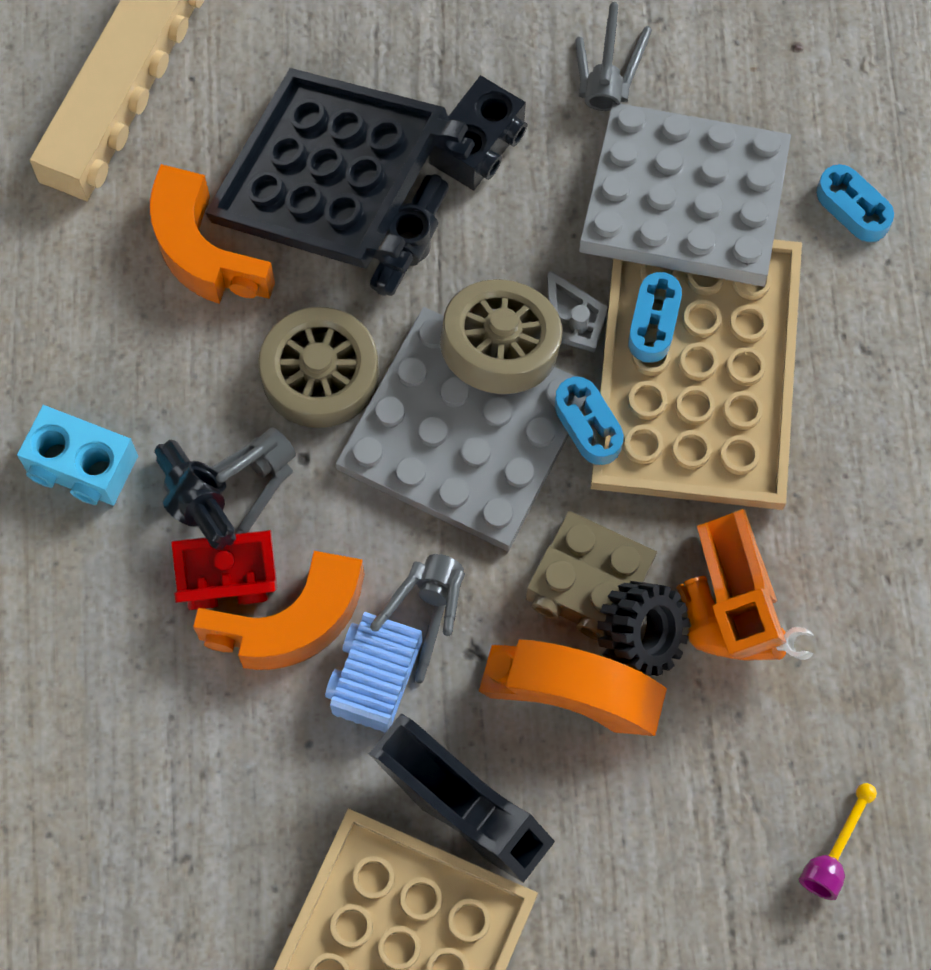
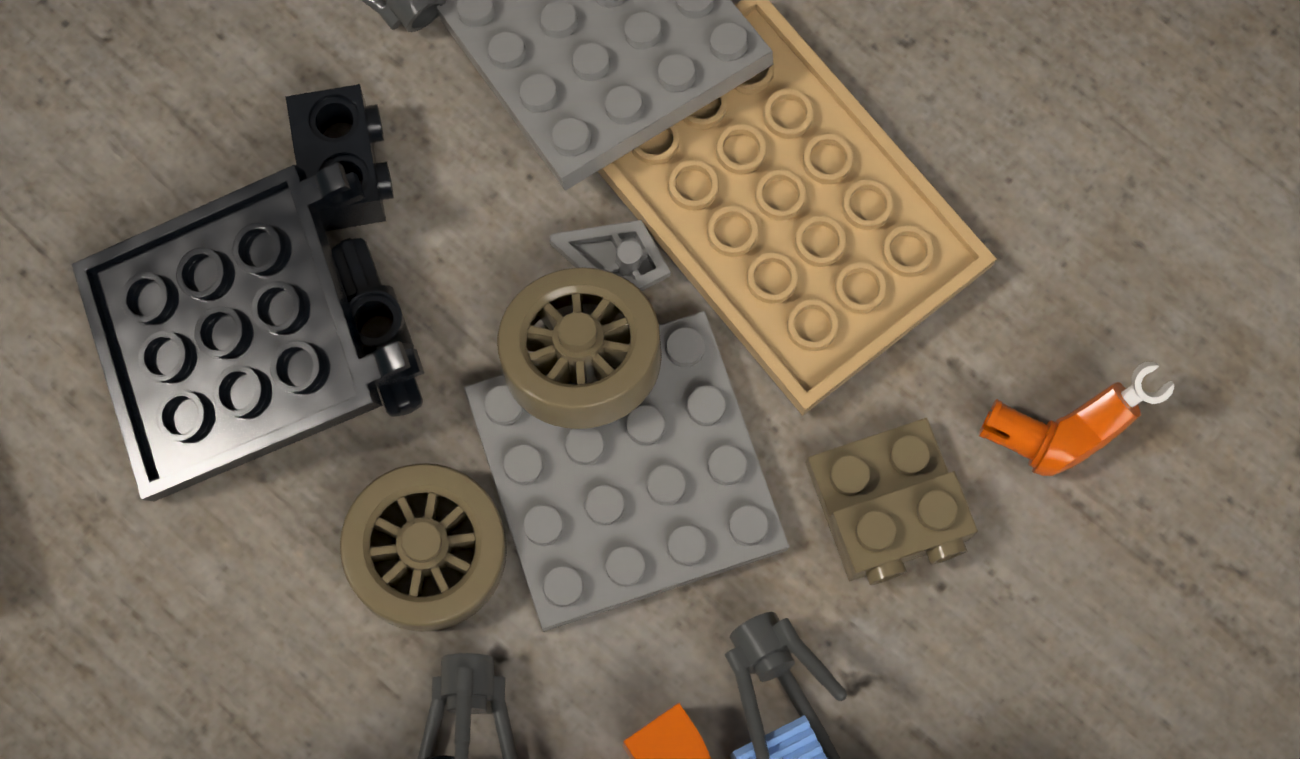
camera: 50 degrees left, 5 degrees up
(176, 216) = (112, 530): orange arch -> none
(575, 681) = (987, 627): orange arch -> none
(579, 425) = (750, 337): dark azure beam -> none
(662, 632) = (1000, 506): black tyre -> none
(665, 318) = (714, 182): dark azure beam -> none
(740, 586) = (1049, 380): orange arch -> none

